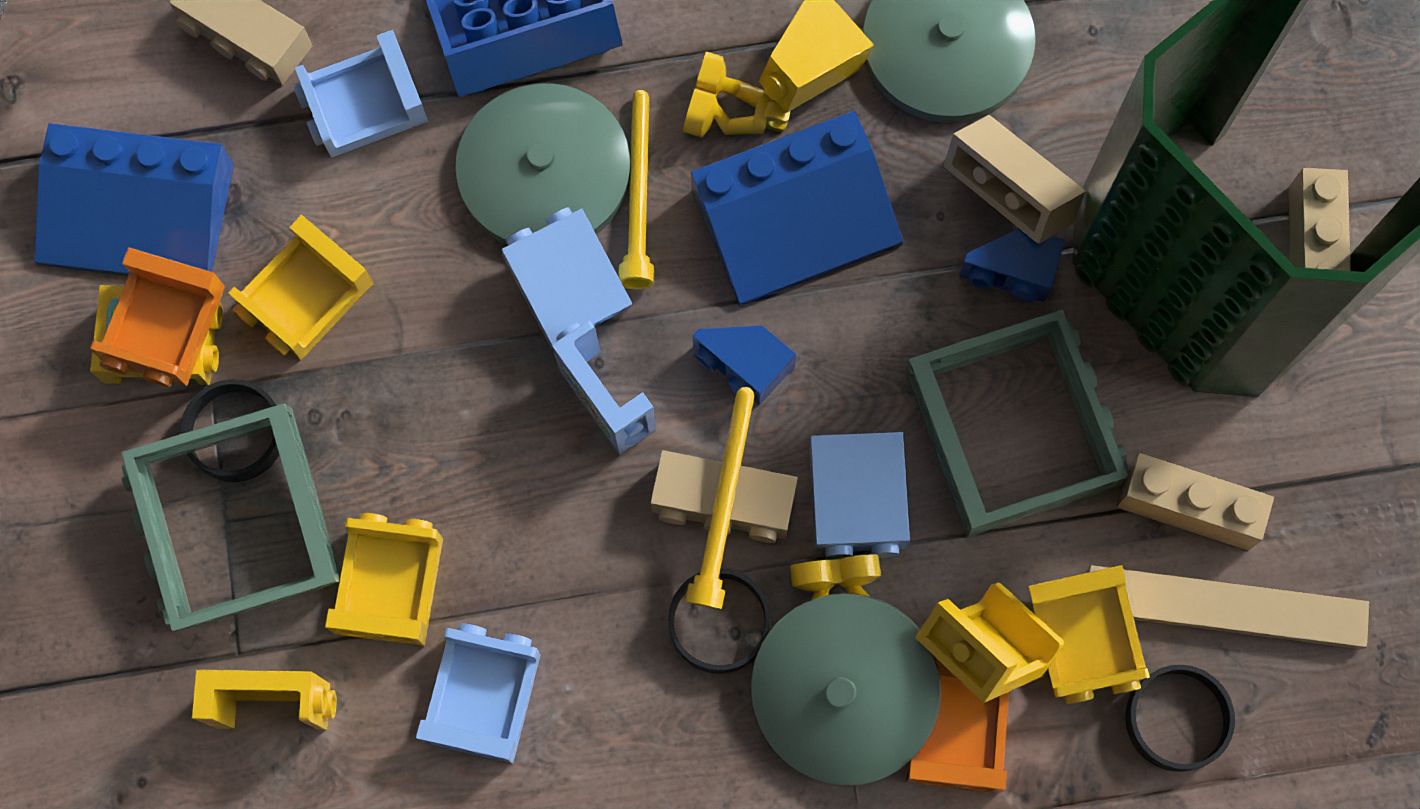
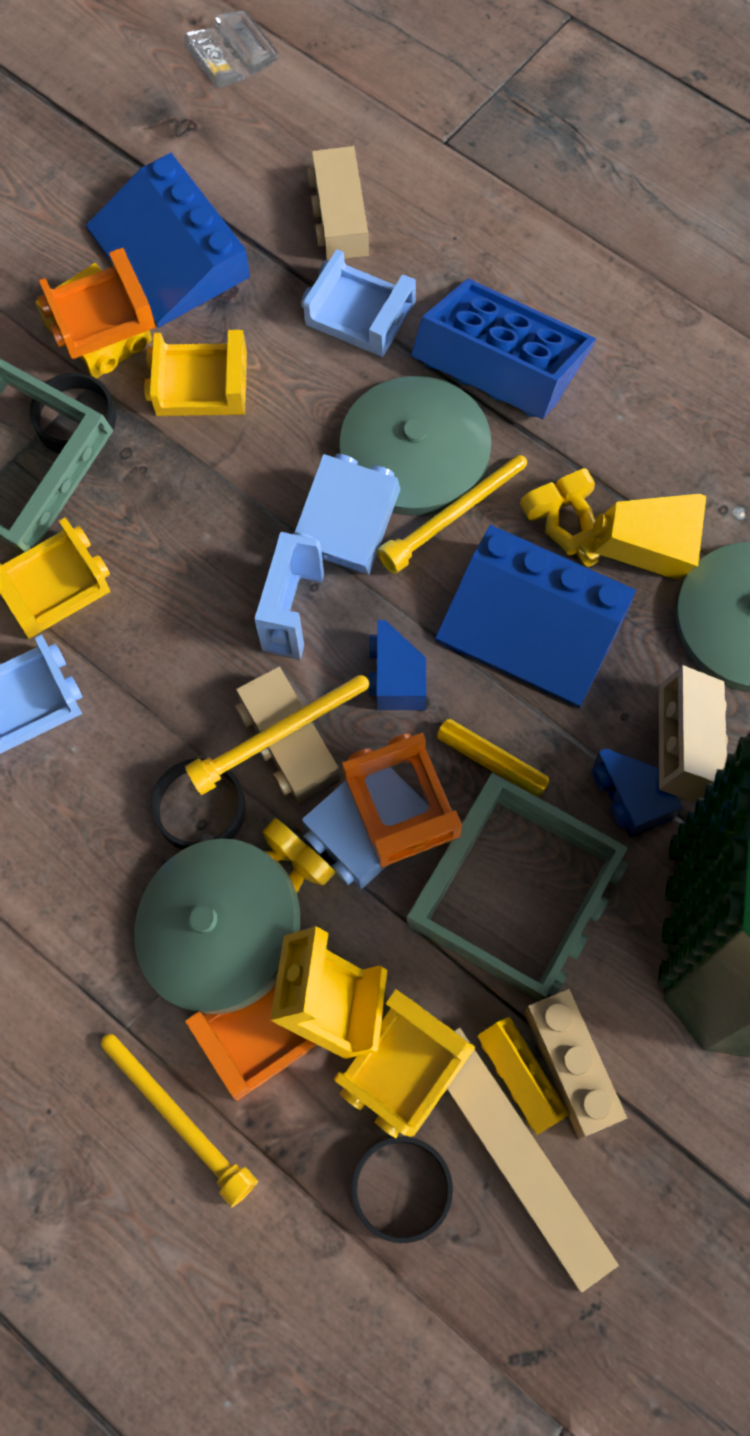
camera: 50 degrees right, 5 degrees down
(887, 348) = (493, 757): none -> yellow axle
(911, 462) = (414, 834): none -> orange window
(1169, 549) = (523, 1075): none -> yellow piece

